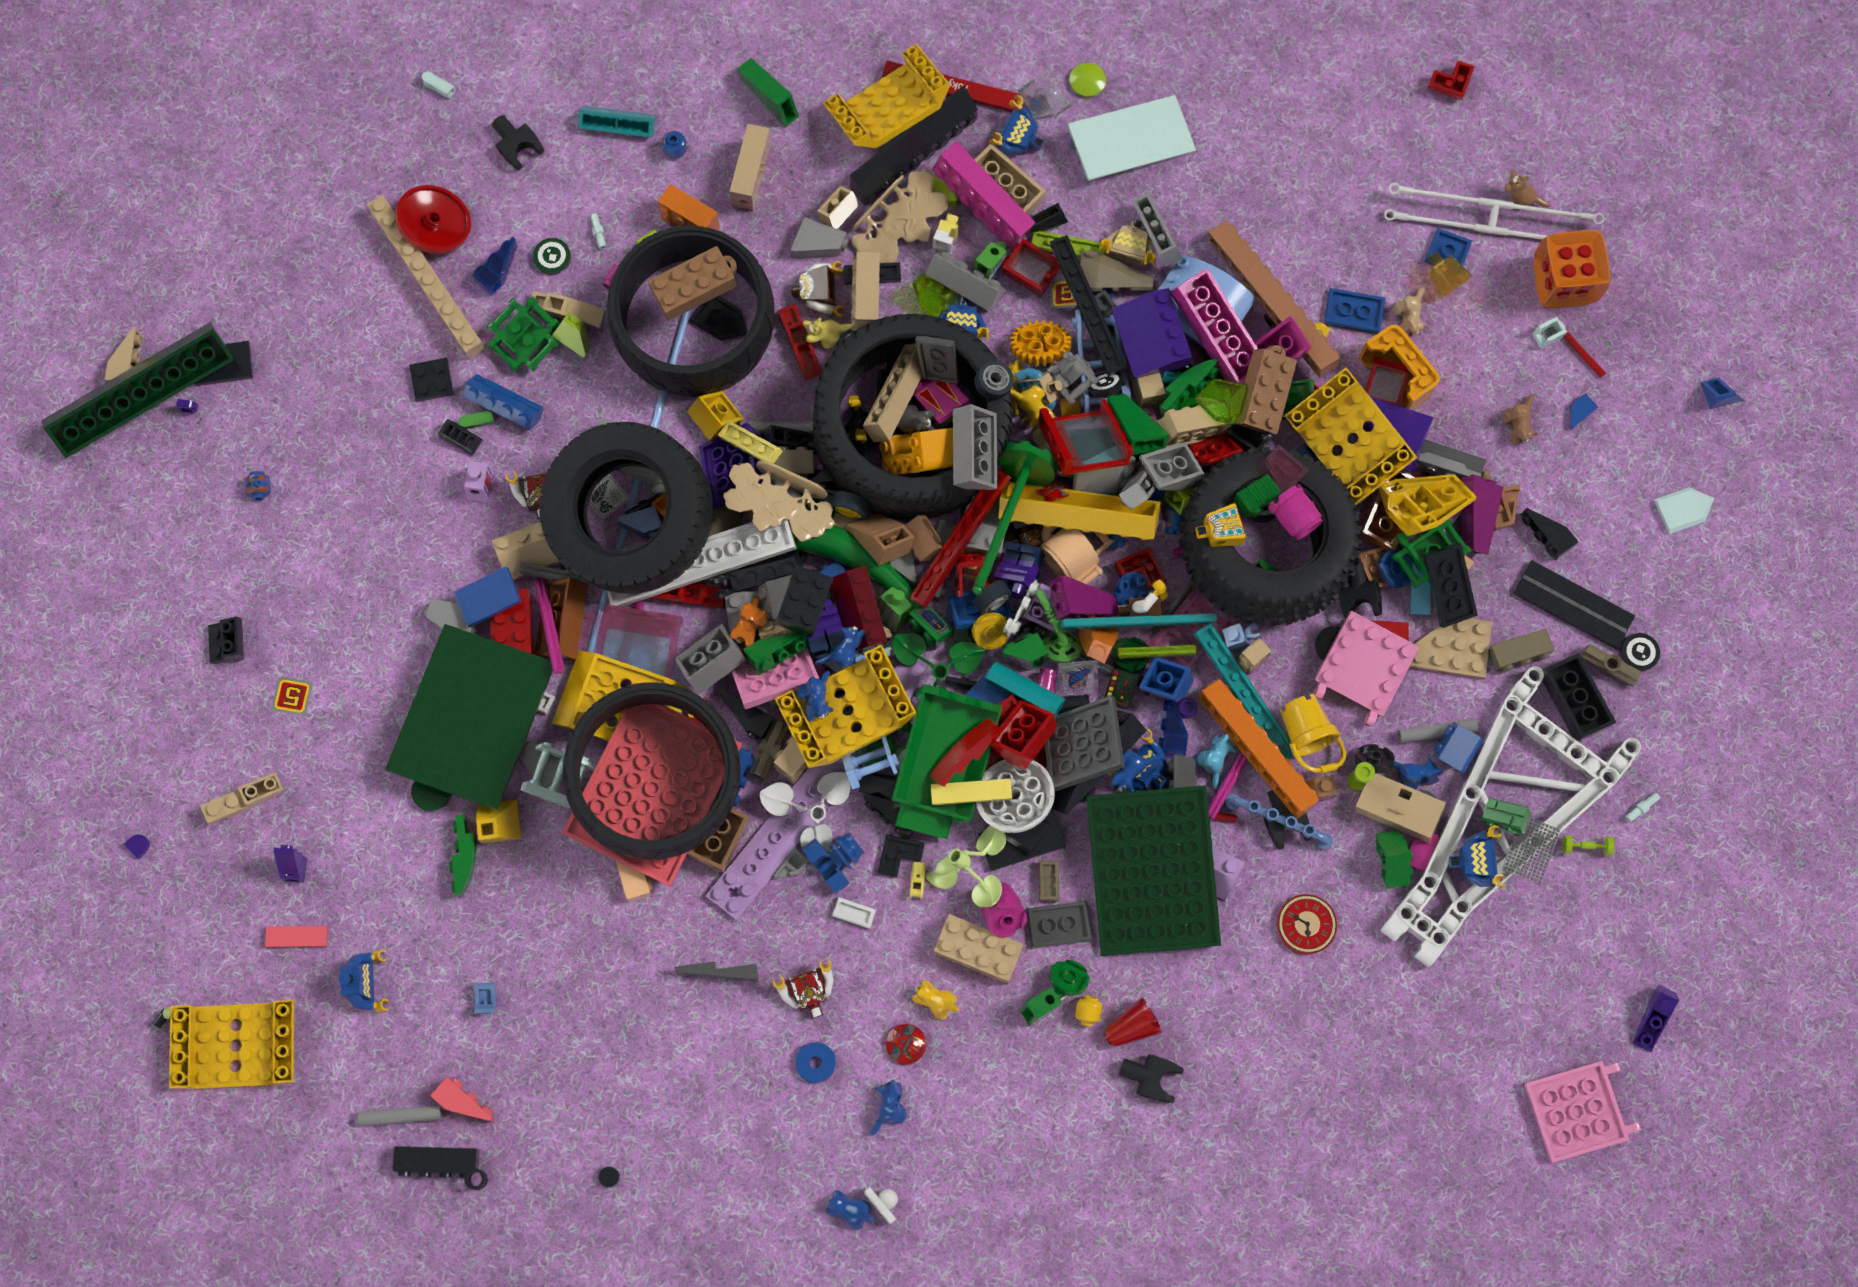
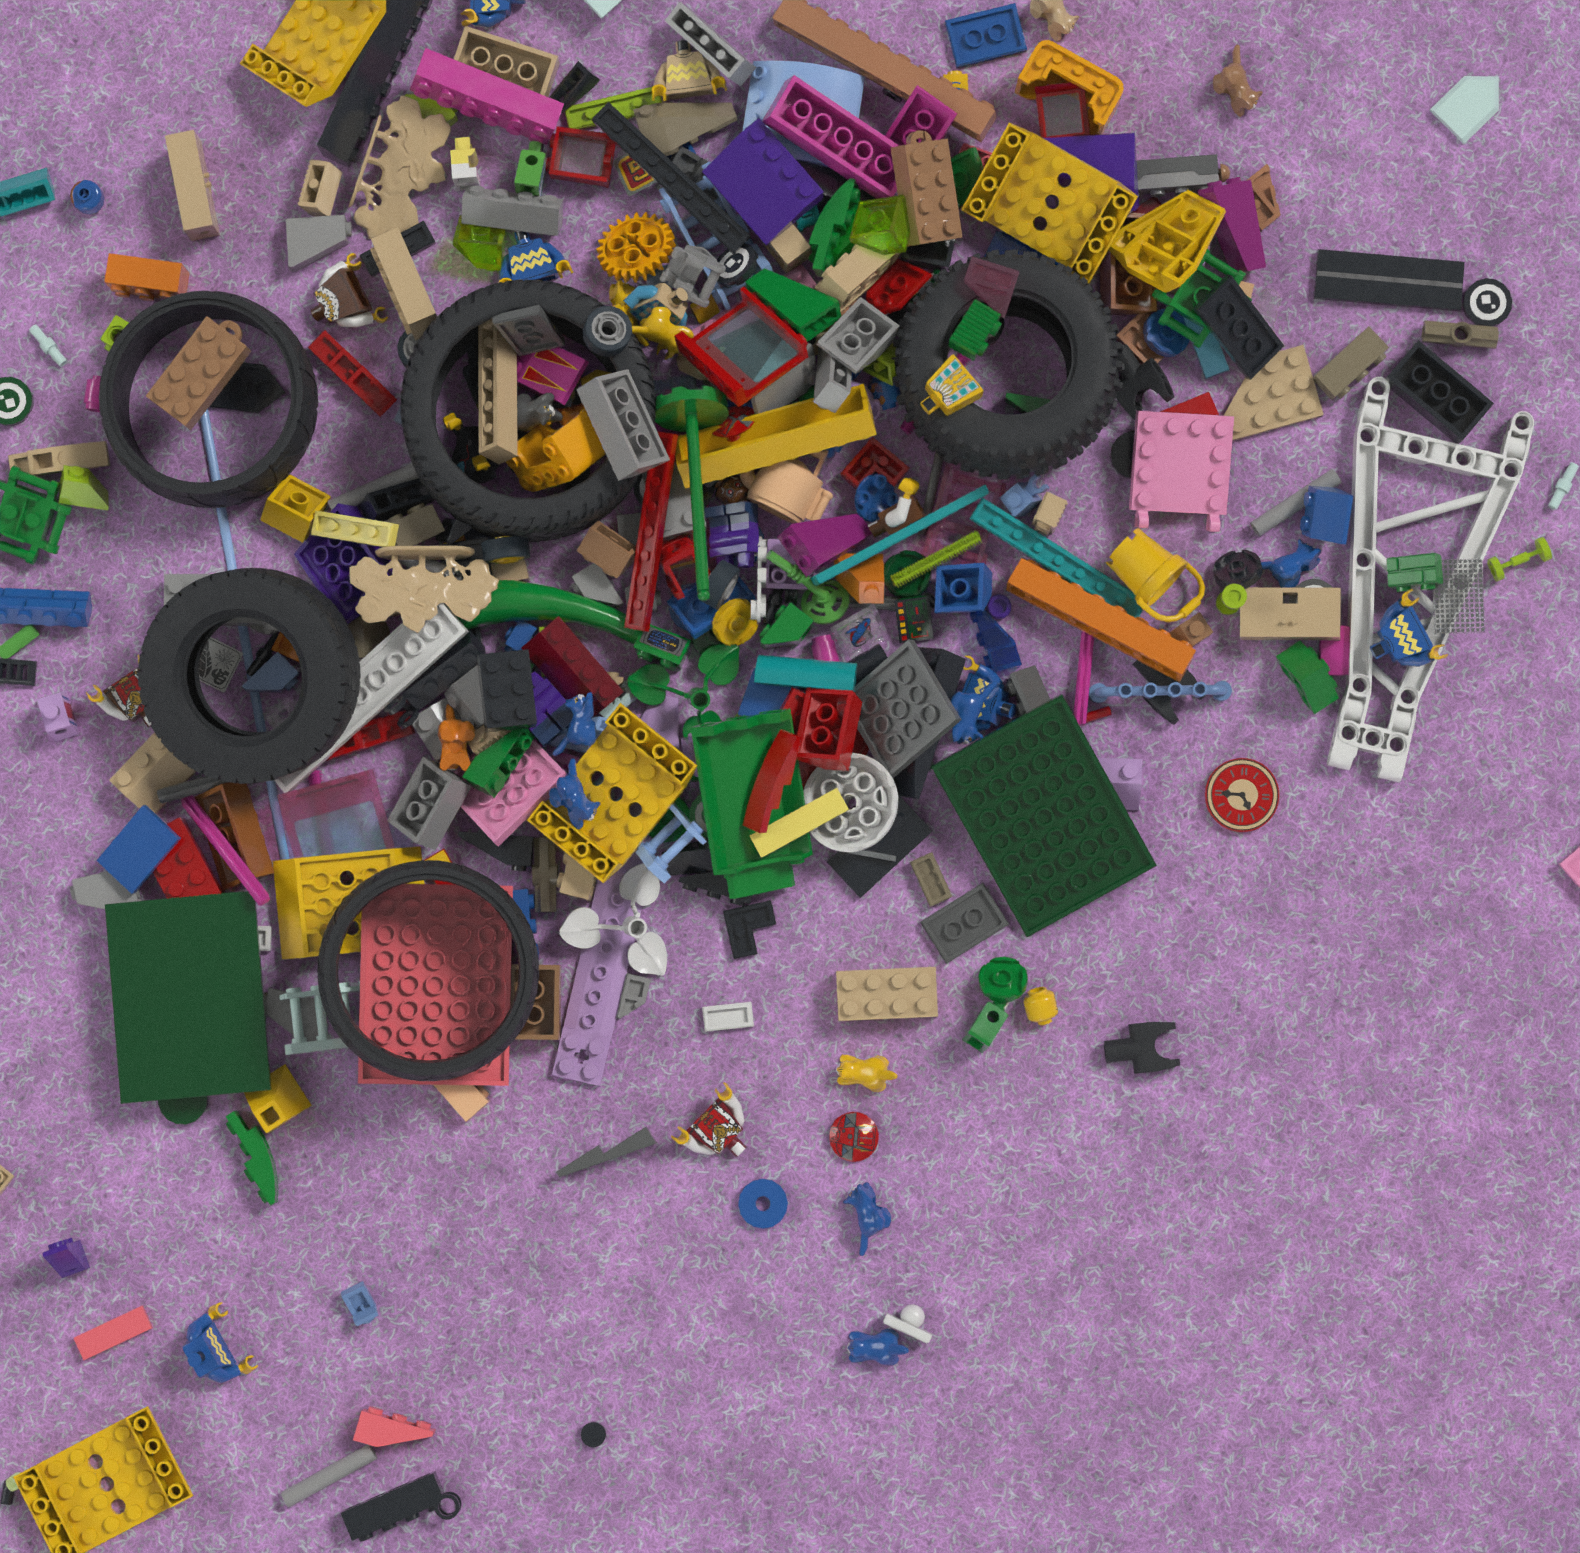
camera: 20 degrees left, 10 degrees up
(769, 92) = (168, 78): green slope -> none
(826, 332) = (378, 347): light yellow animal -> none
(844, 851) = (674, 975): blue beam -> none
(882, 537) = (559, 570): medium nougat slope -> none
(894, 609) = (611, 647): bright green torso -> none
(917, 877) = (781, 942): light yellow bar -> none
(945, 875) = (811, 927): yellowish green plant -> none
(963, 682) = (730, 695): black bar -> none
(1006, 914) = (893, 938): dark pink piece -> none
(1133, 1025) = (1098, 999): red cone -> none
(1213, 759) = (1054, 654): medium azure animal -> none
(1296, 512) = (1028, 331): dark pink piece -> none
(1552, 534) = (1330, 207): black slope -> none
(1581, 409) = (1301, 37): blue tile -> none

